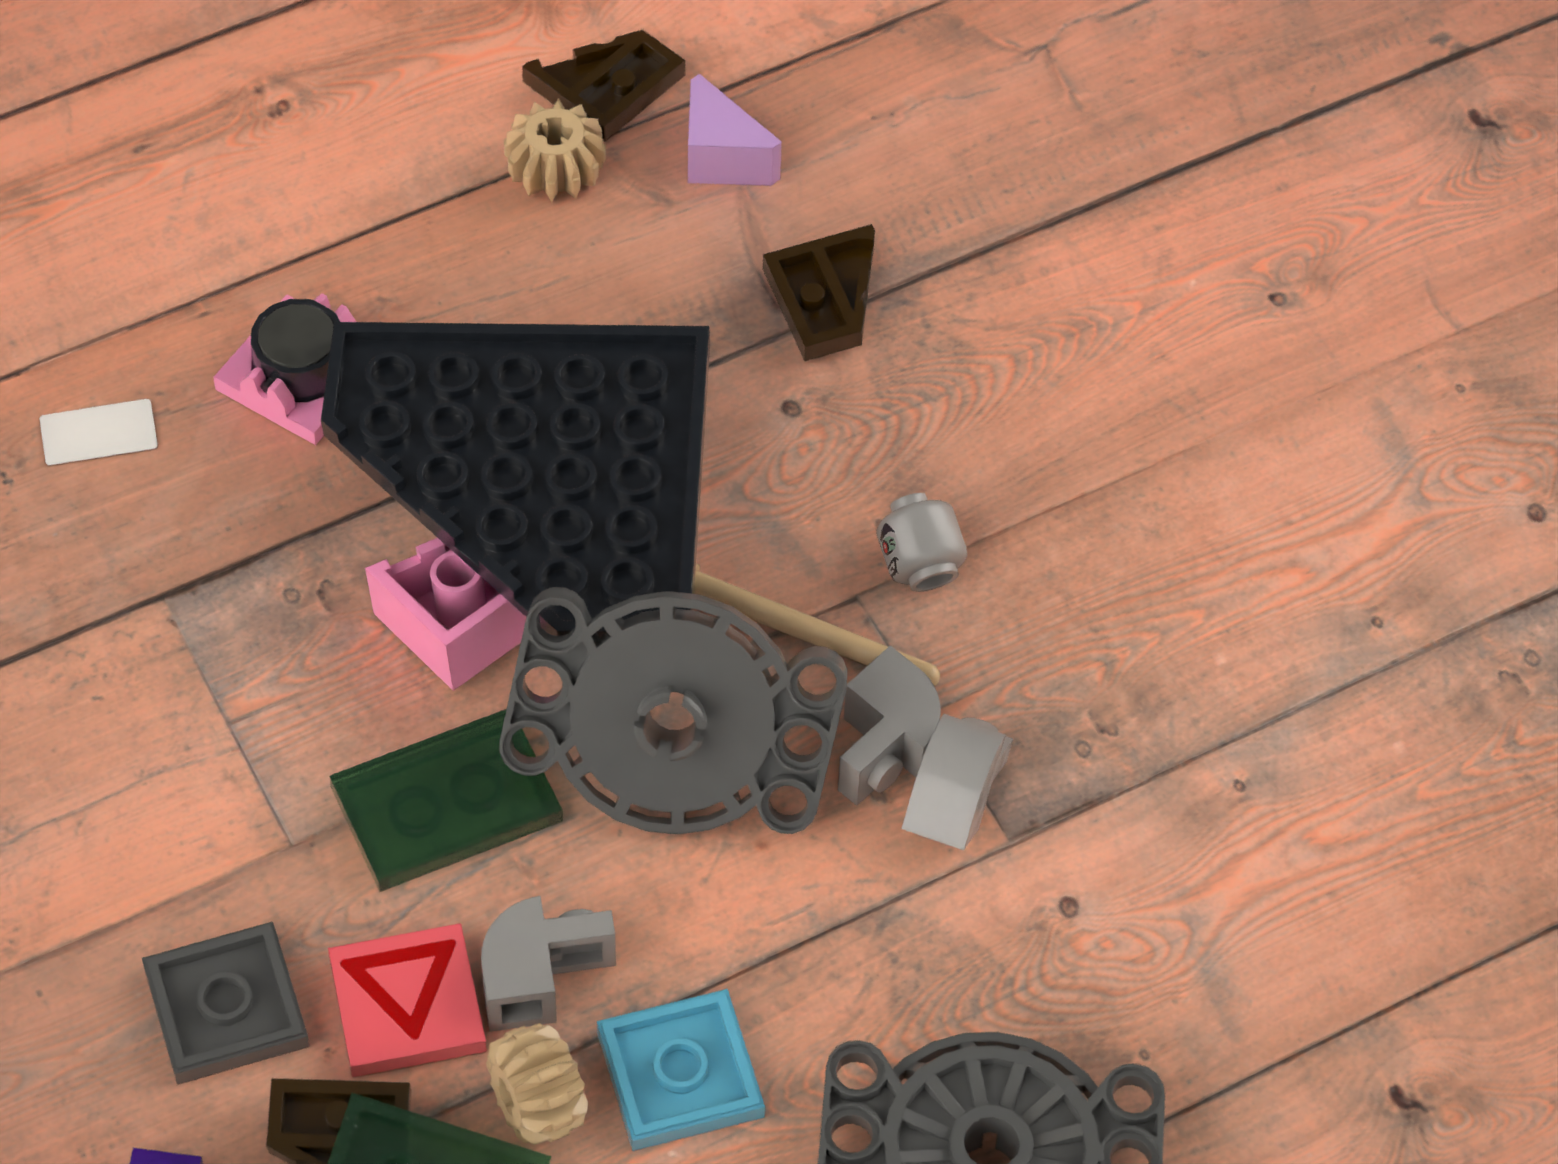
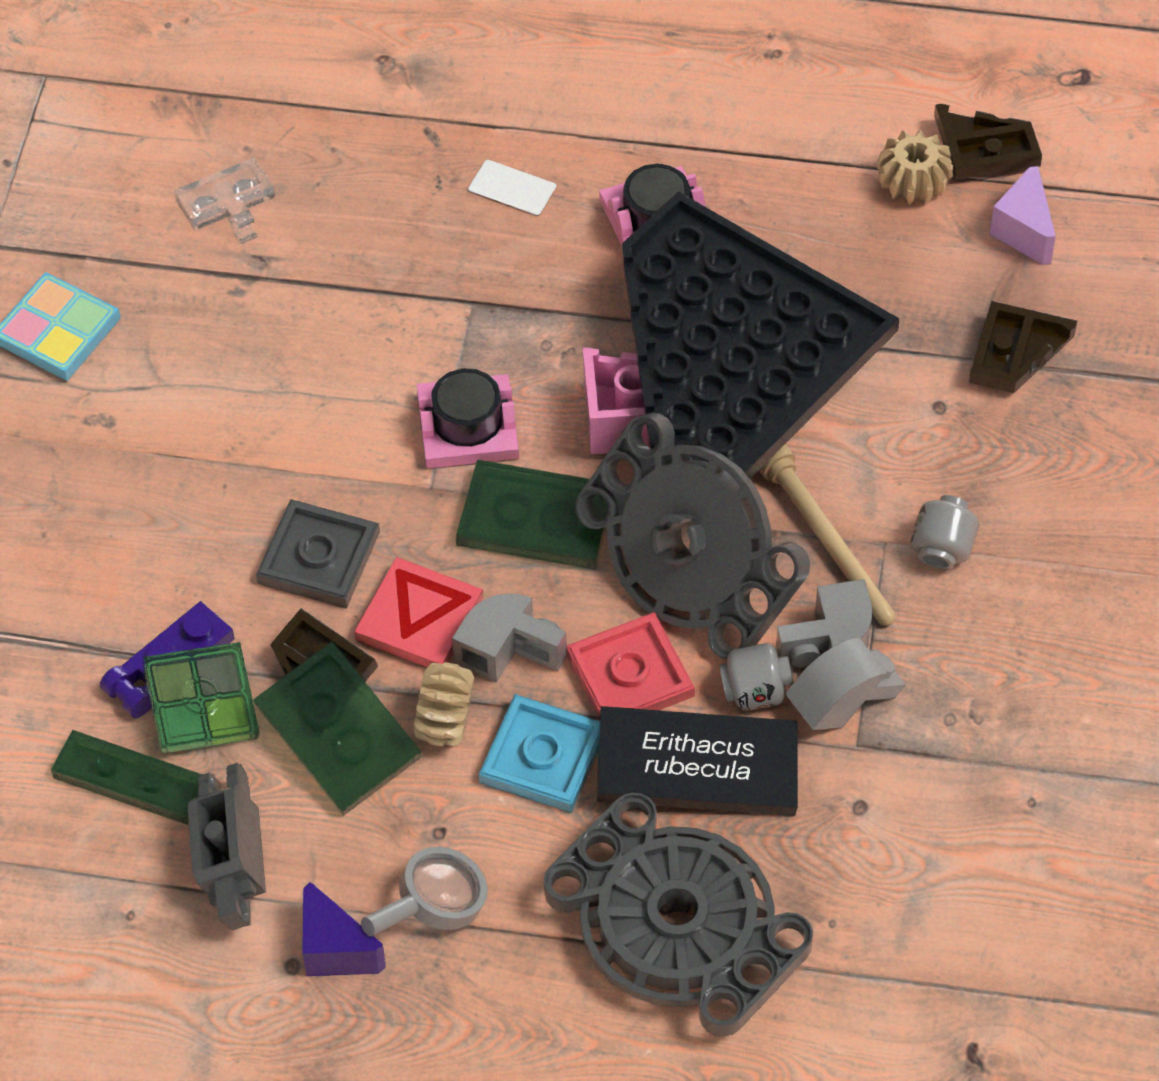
camera: 40 degrees right, 0 degrees up
(271, 735) = (467, 415): none -> piece
(700, 912) = (631, 667): none -> coral tile
(851, 830) = (756, 677): none -> light grey head
(863, 966) = (698, 760): none -> black tile

